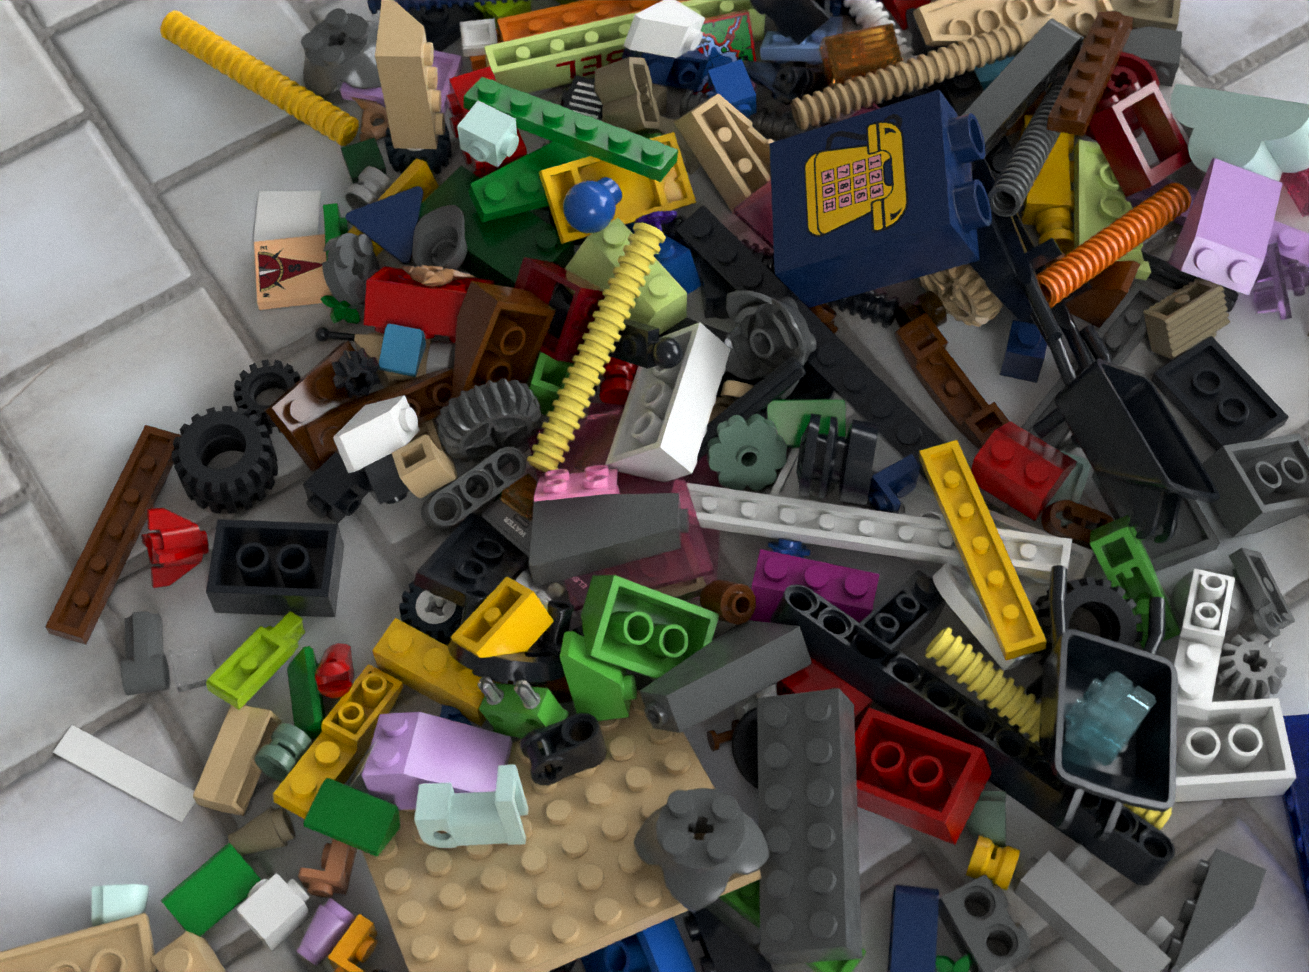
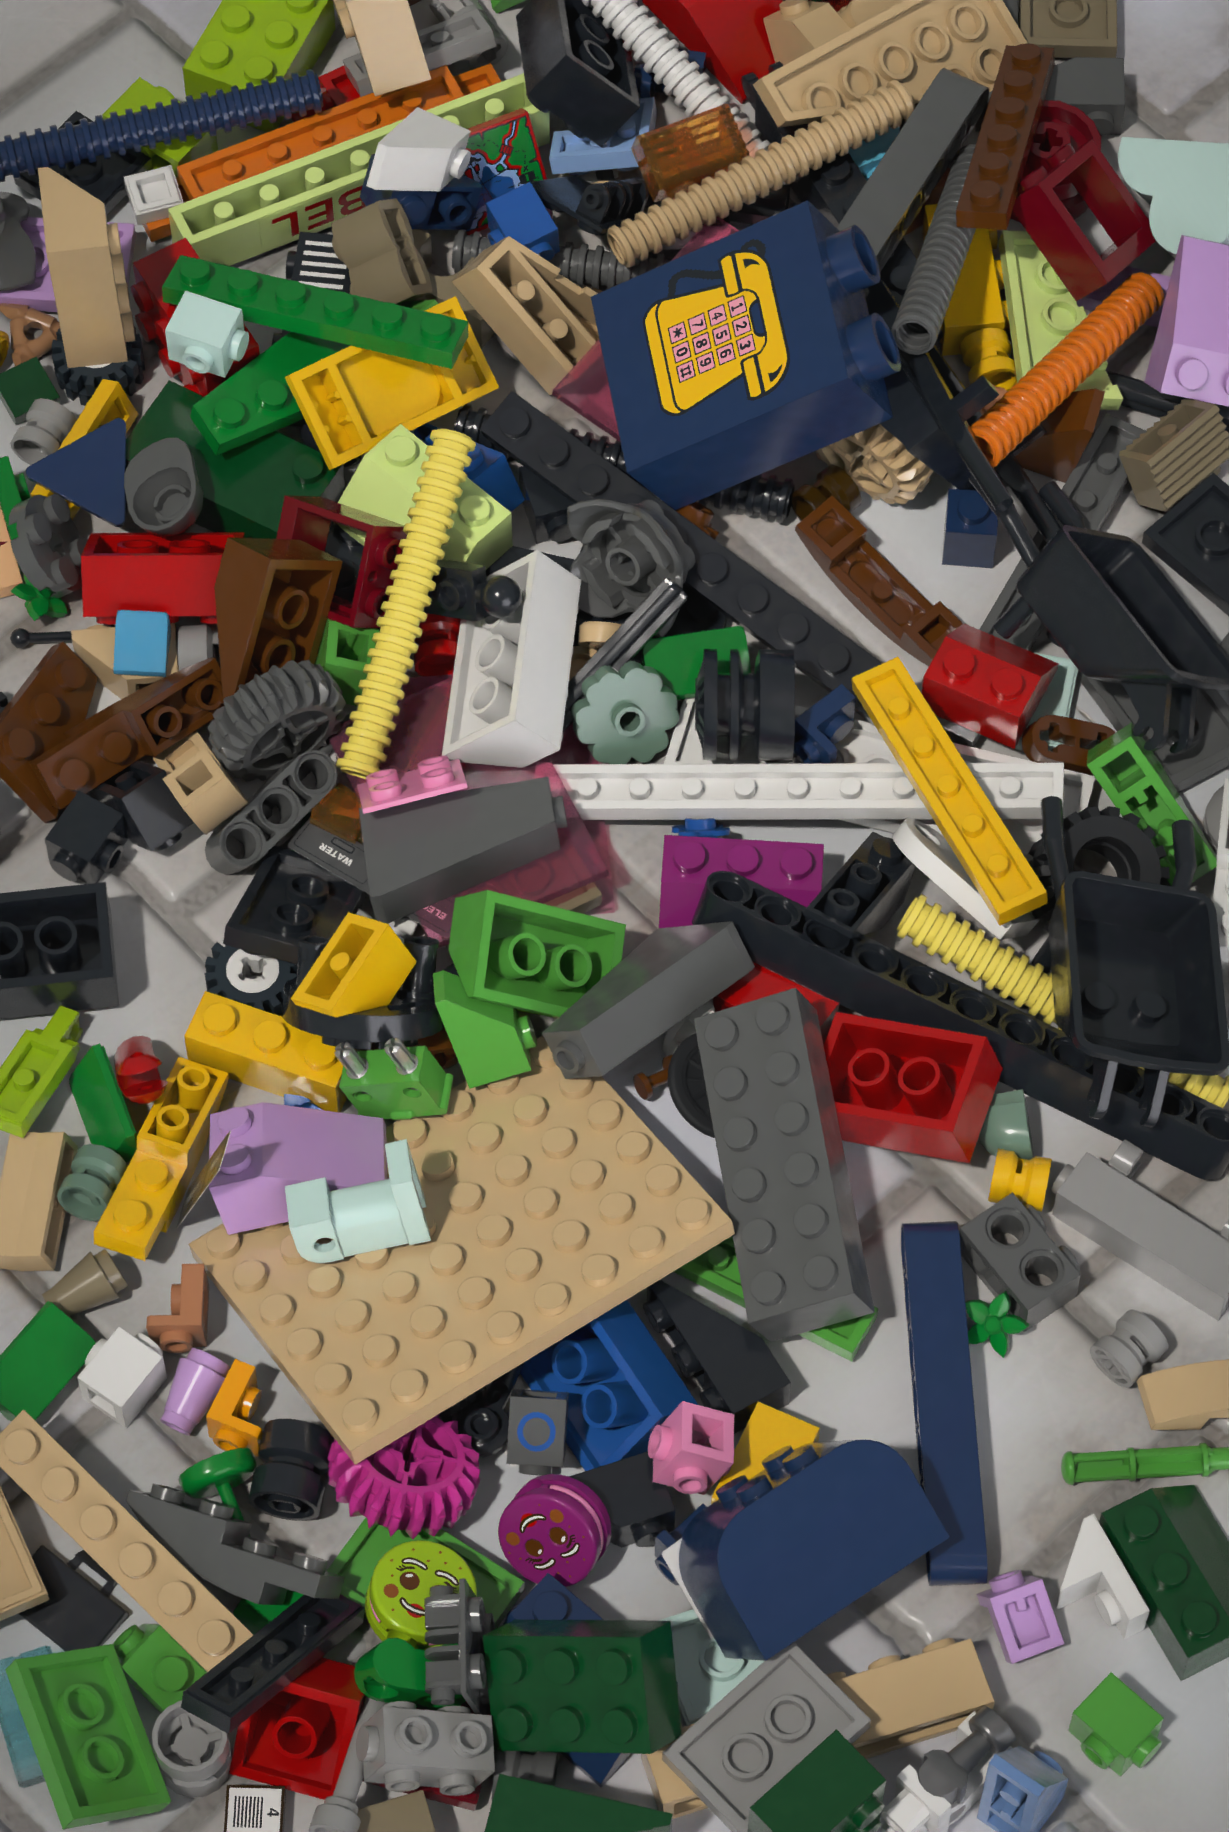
camera: 10 degrees left, 0 degrees up
(353, 817) = (204, 1242): green slope -> none
(356, 372) = (86, 682): black gear -> none
(376, 432) = (135, 755): white slope -> none
(434, 275) = (166, 536): medium nougat piece -> none
(567, 747) = (461, 1118): black piece -> none
(591, 204) = (364, 412): blue piece -> none
(657, 218) = (451, 418): dark purple plant -> none
(700, 869) = (657, 1228): dark grey brick -> none
(730, 600) = (637, 904): reddish brown brick -> none
(1108, 716) = (1135, 972): clear light blue brick -> none

